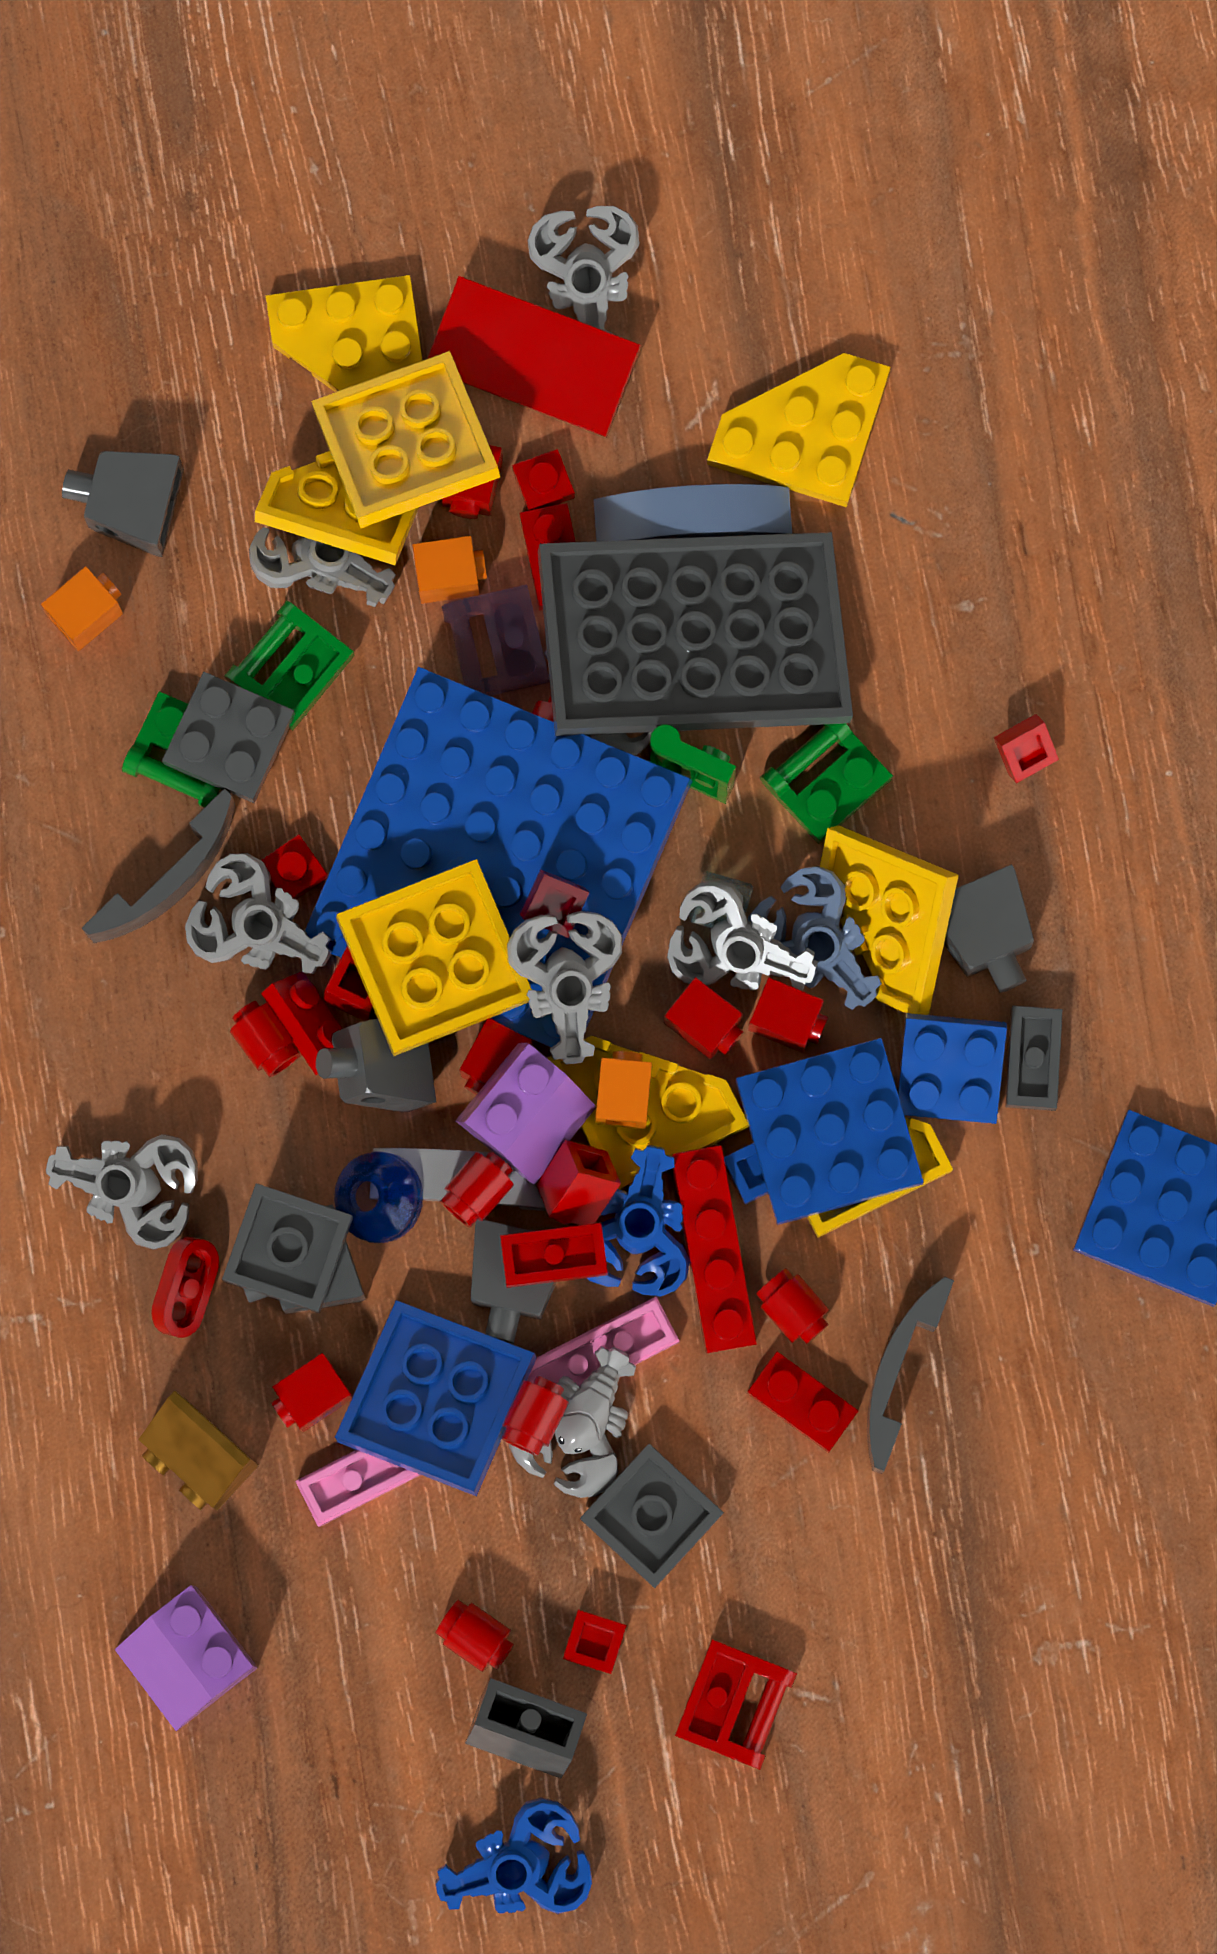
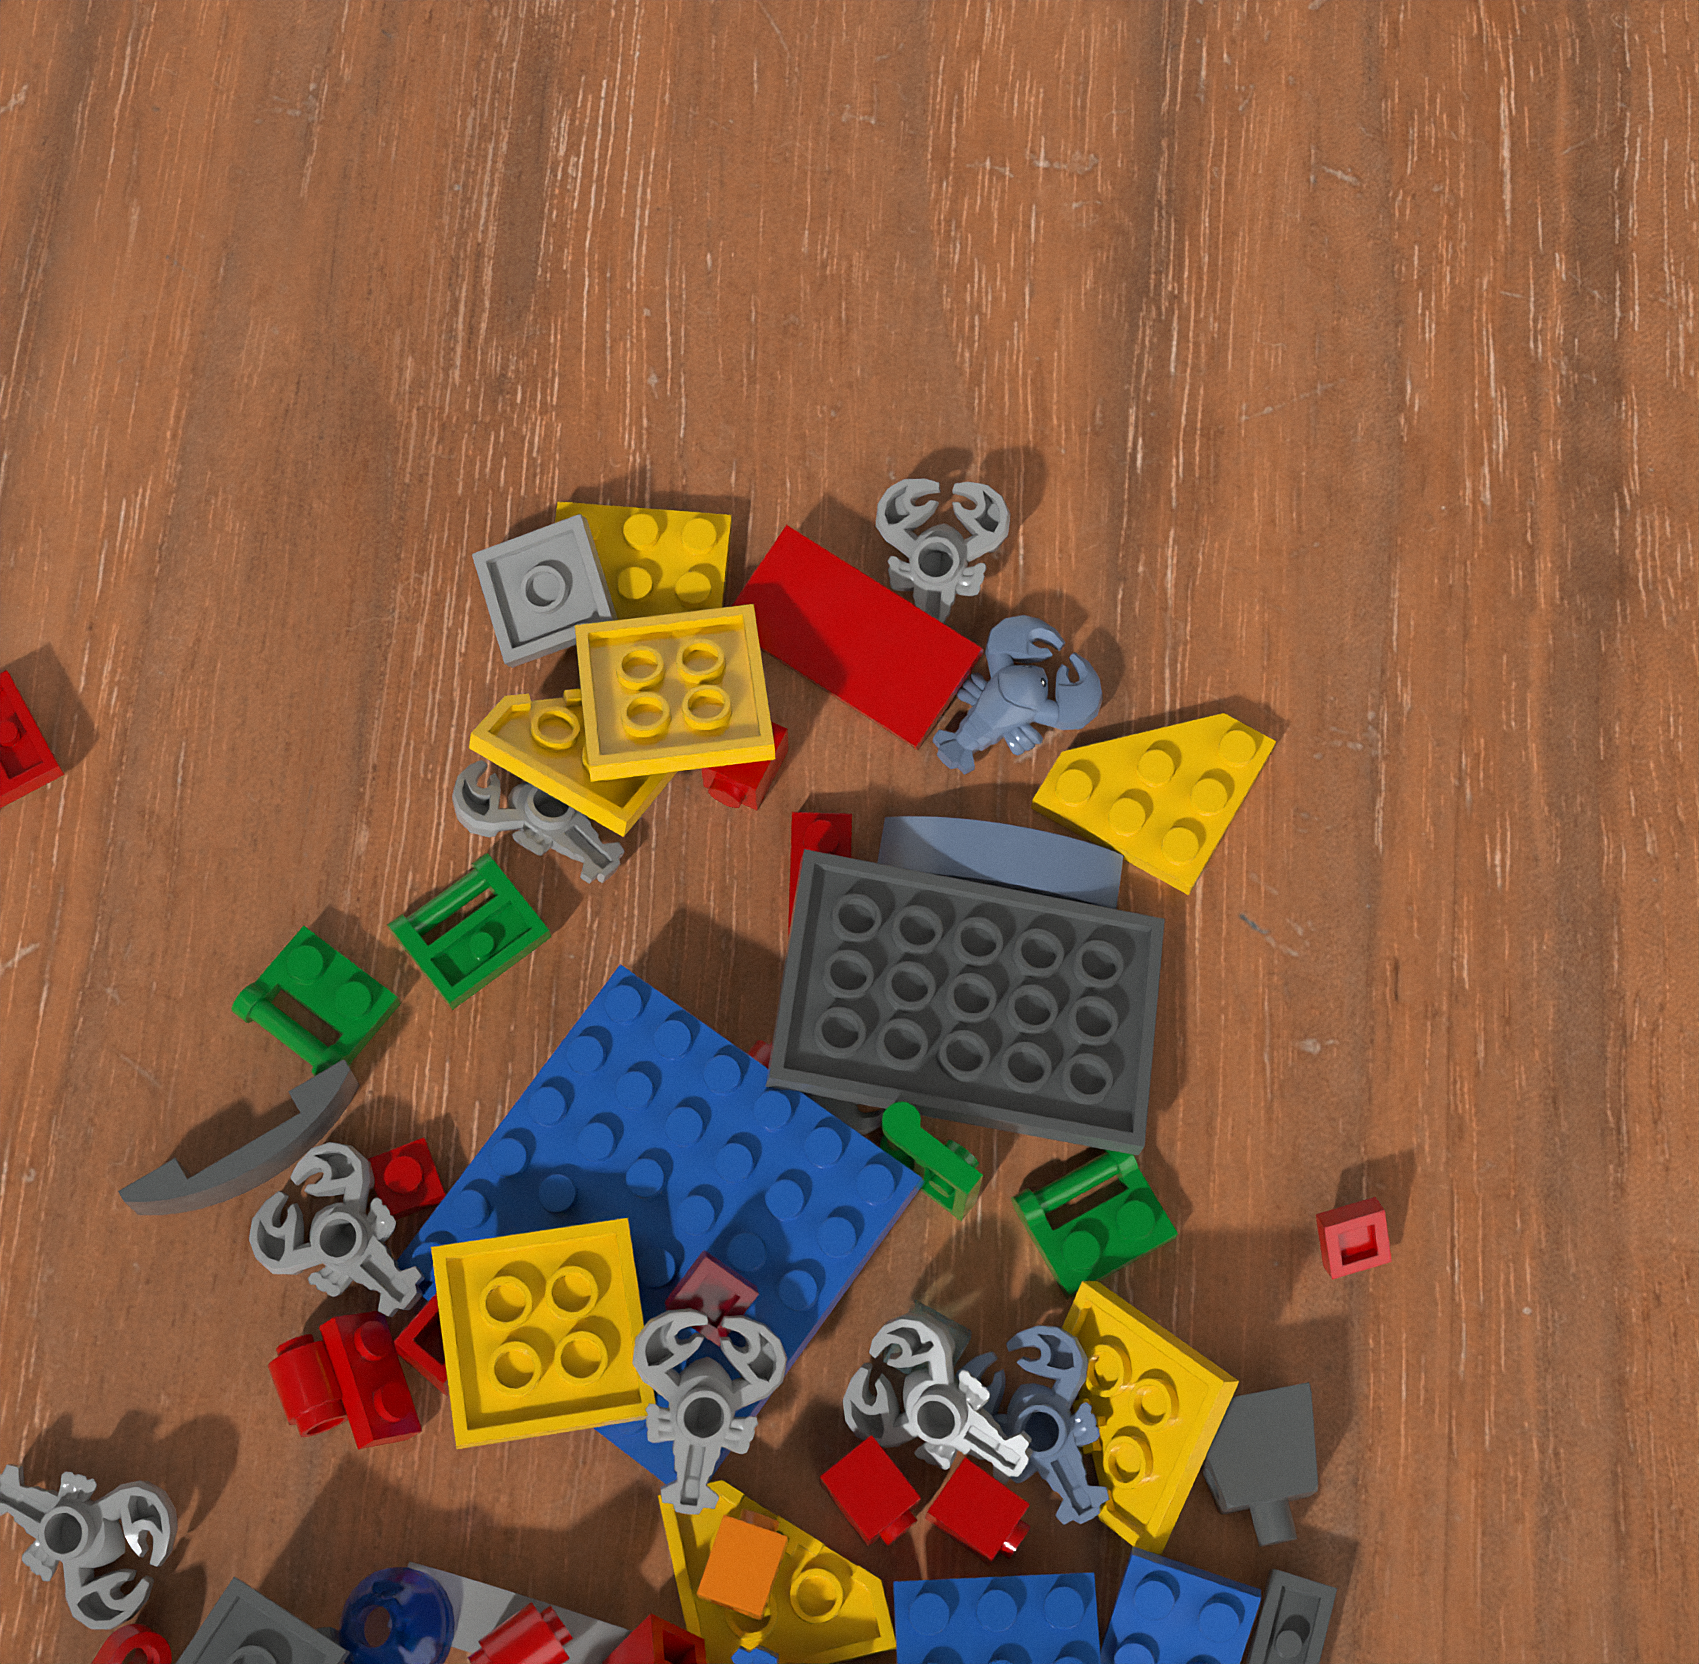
camera: 10 degrees right, 10 degrees down
(83, 607) = (241, 806): orange brick -> none
(129, 497) = (334, 691): dark grey torso -> none
(228, 737) = (368, 998): dark grey plate -> none
(276, 374) = (543, 588): none -> light grey plate
(371, 1073) = (426, 1466): dark grey torso -> none
(448, 569) = (688, 859): orange brick -> none
(488, 1053) = (591, 1483): red brick -> none
(511, 636) = (745, 957): plate -> none
(526, 1111) = (610, 1564): medium lavender slope -> none
(543, 481) = (830, 782): red plate -> none
(677, 374) = (1019, 695): none -> sand blue animal

